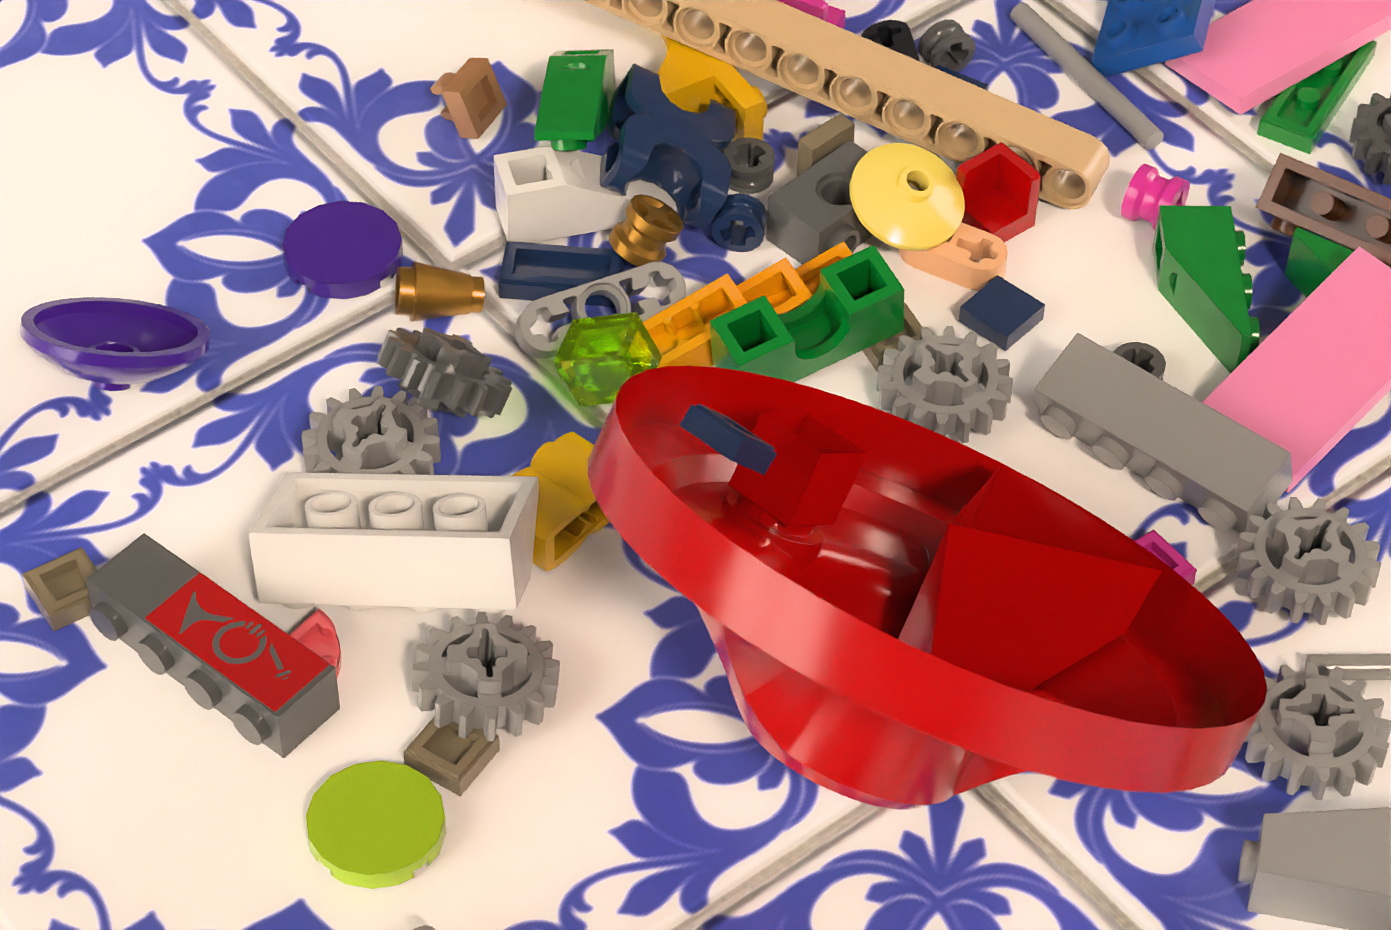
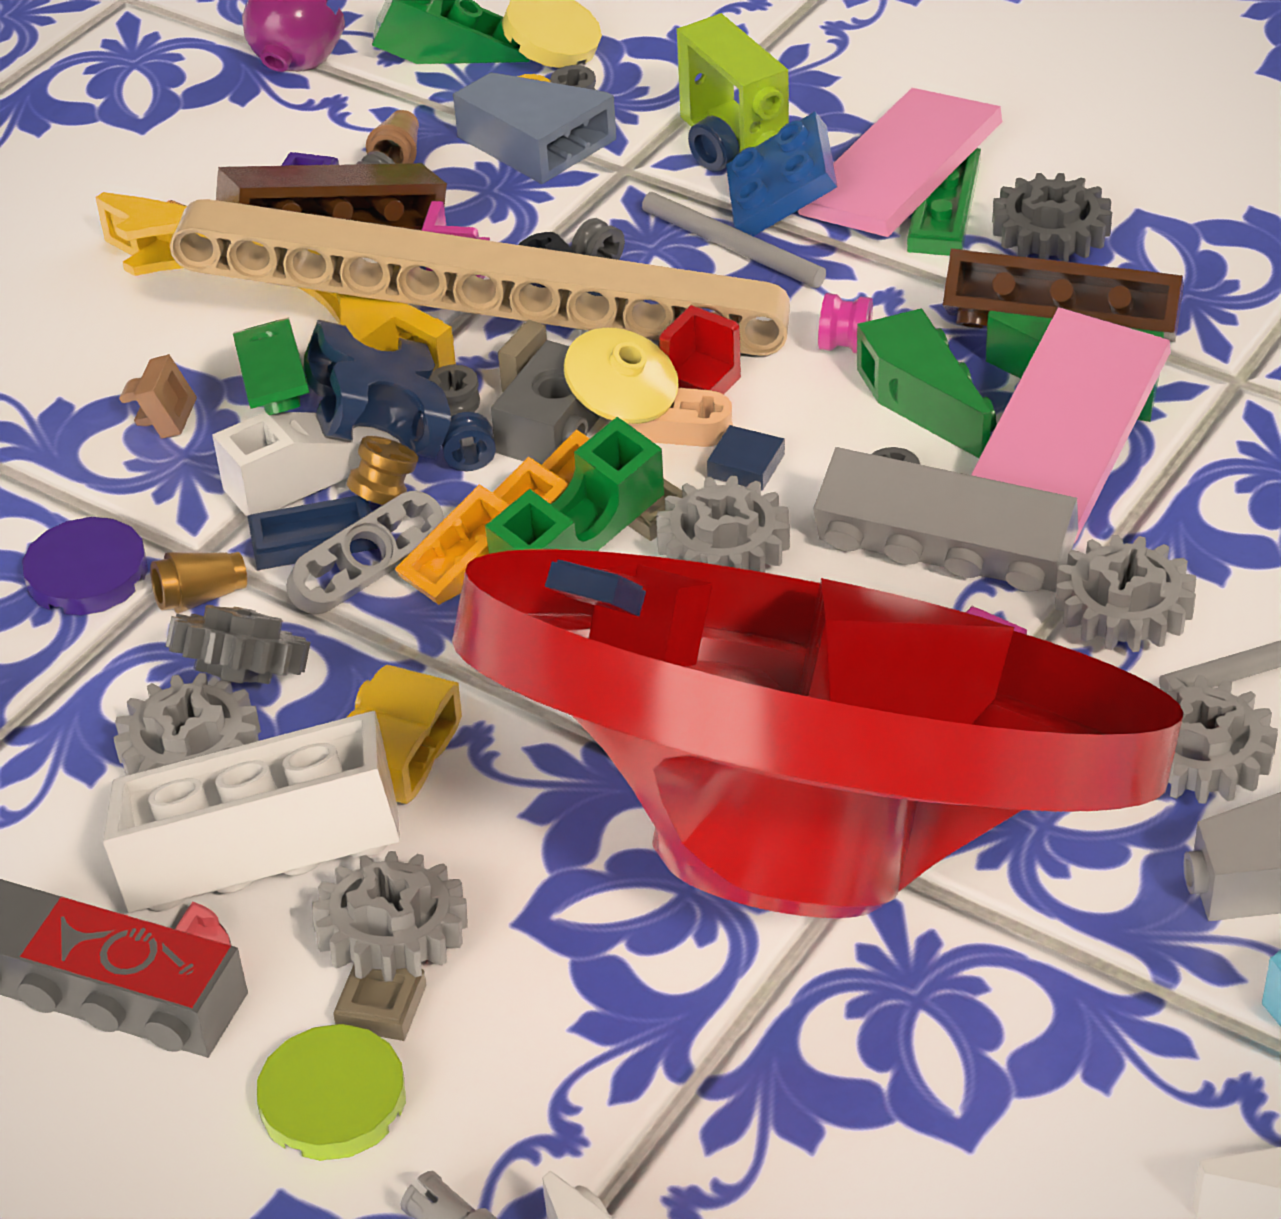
camera: 15 degrees left, 5 degrees down
(603, 355) = (392, 592): clear neon green brick -> none

